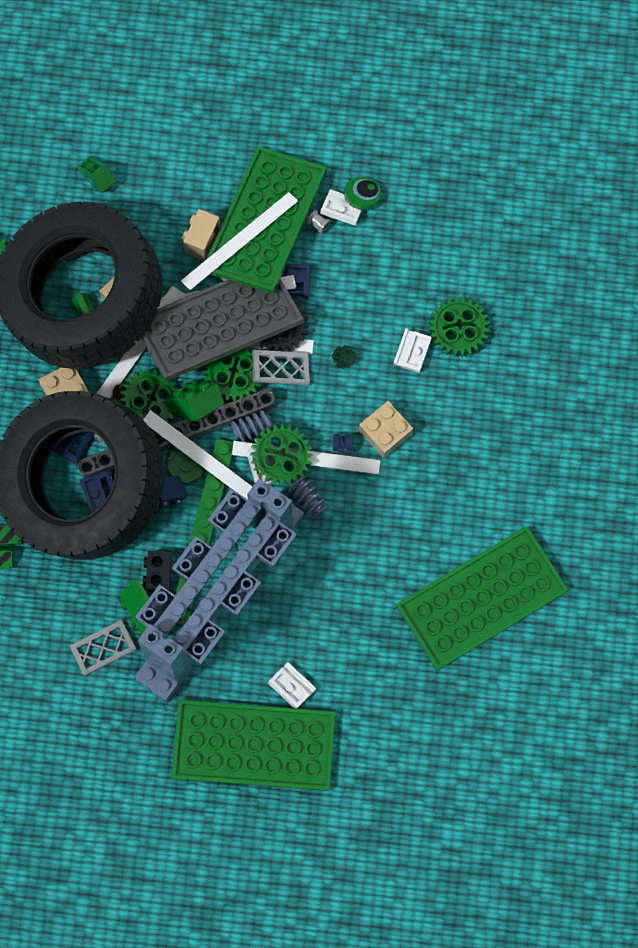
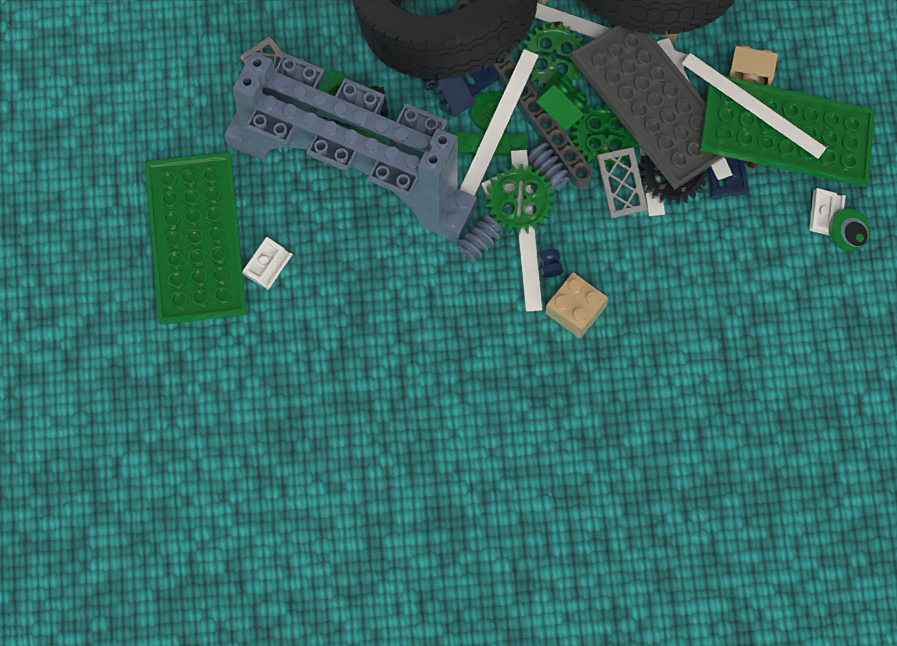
camera: 80 degrees right, 5 degrees down
(318, 221) = (803, 190): light grey bush -> none
(344, 356) = (650, 245): clear green gear -> none
(412, 350) = (676, 318): white plate -> none
(461, 342) = (735, 358): green gear -> none
(481, 598) = (405, 445): green plate -> none

